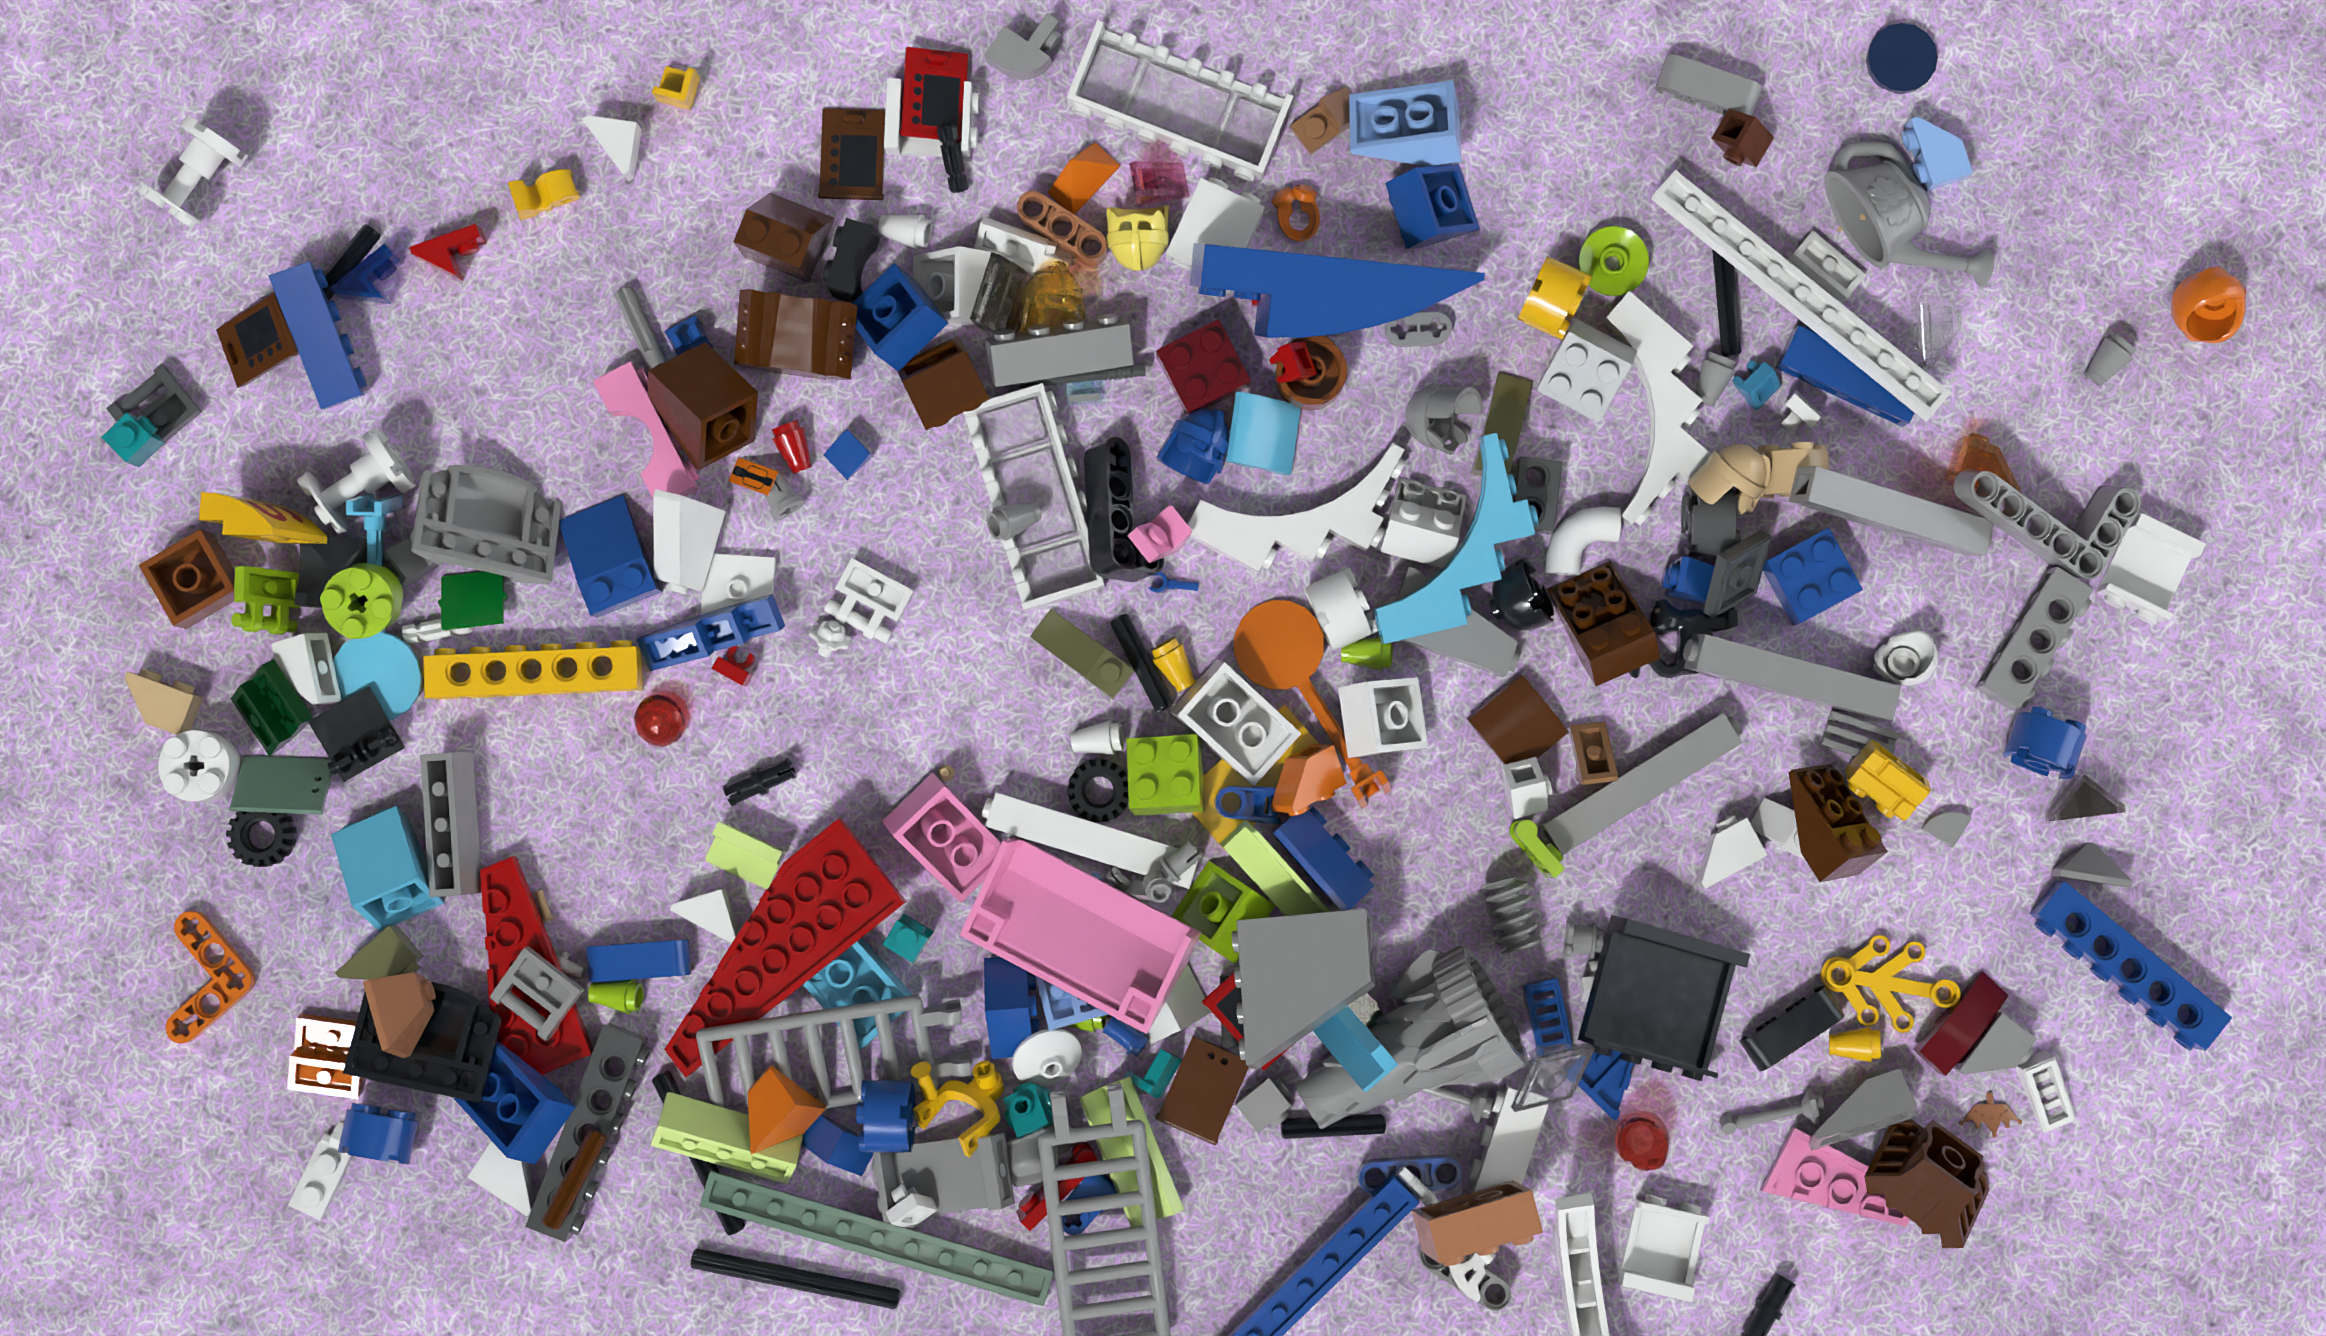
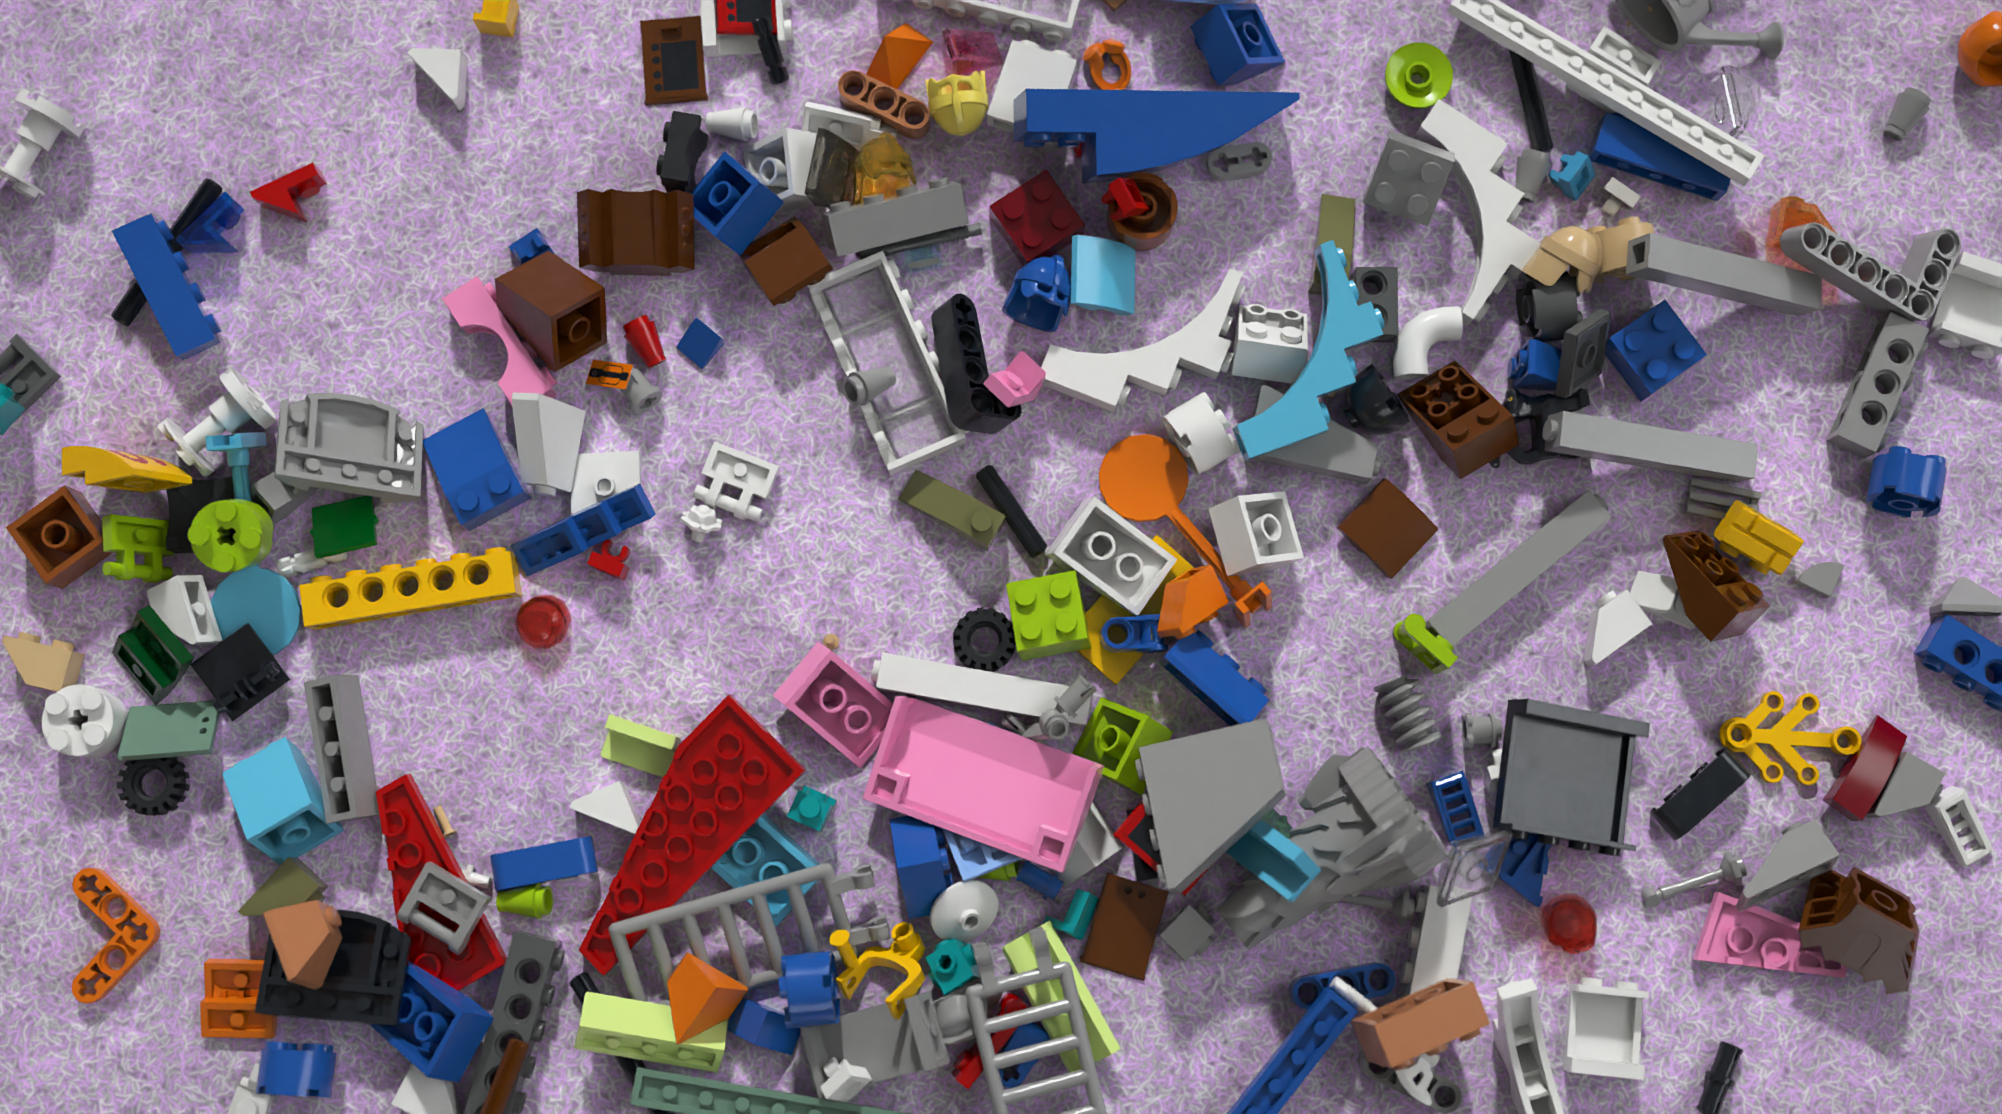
camera: 10 degrees left, 5 degrees down
(257, 341) = (108, 299): reddish brown container -> none
(548, 191) = (384, 125): yellow leg -> none
(640, 327) = (482, 243): light grey axle -> none
(760, 781) = (647, 671): black pin -> none
(783, 235) = (613, 143): reddish brown slope -> none
(1099, 739) = (978, 589): white cone -> none
(1173, 663) = (1043, 508): yellow cone -> none
(1174, 584) = (1031, 431): blue hand -> none
(1271, 872) = (1164, 696): yellowish green panel -> none
(1346, 1126) = (1271, 945): black axle -> none
(1368, 654) = (1232, 475): lime cone -> none
(1433, 415) = (1265, 236): light grey helmet -> none
(1526, 787) = (1405, 586): white brick -> none
(1554, 298) = (1367, 113): yellow brick -> none
(1593, 753) = (1466, 546): medium nougat slope -> none
(1856, 1044) = (1766, 801): yellow cone -> none
(1907, 658) = (1759, 417): white hair -> none
(1991, 1115) = (1908, 856): nougat piece -> none
(2083, 799) = (1951, 533): clear smoke slope -> none

